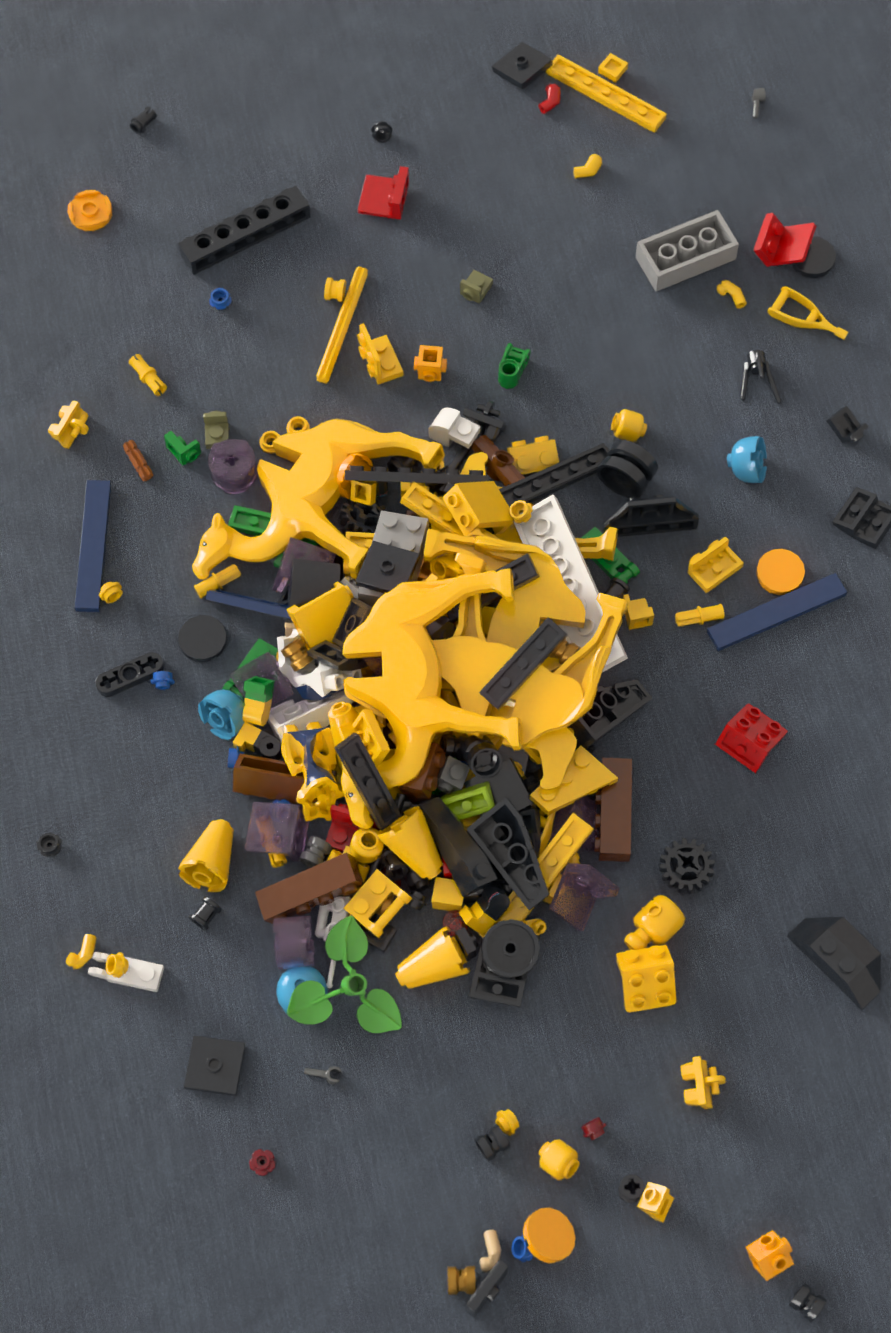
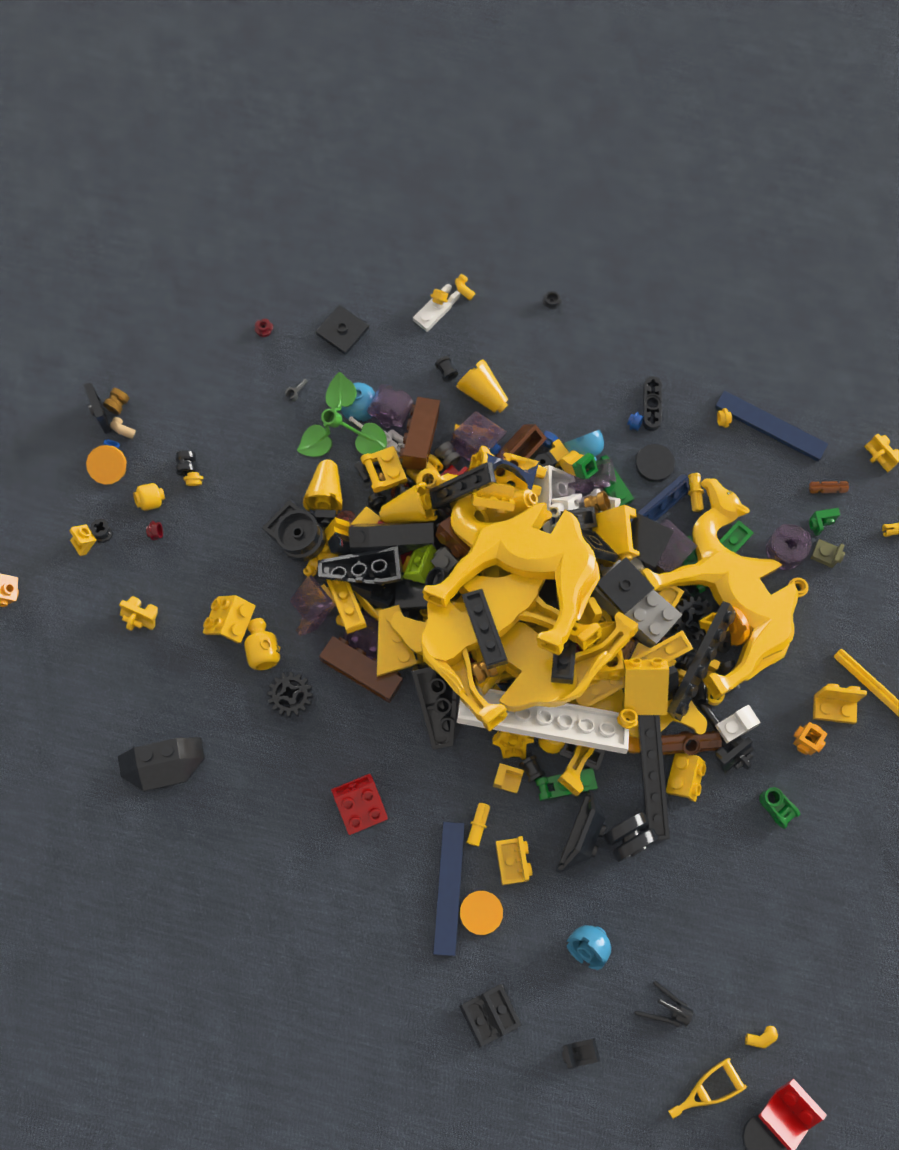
camera: 115 degrees right, 5 degrees up
(297, 422) = (805, 609): yellow plate -> none
(475, 286) = (871, 820): olive bracket -> none
(628, 425) = (673, 867): yellow head -> none
(686, 250) = (822, 1019): light grey brick -> none

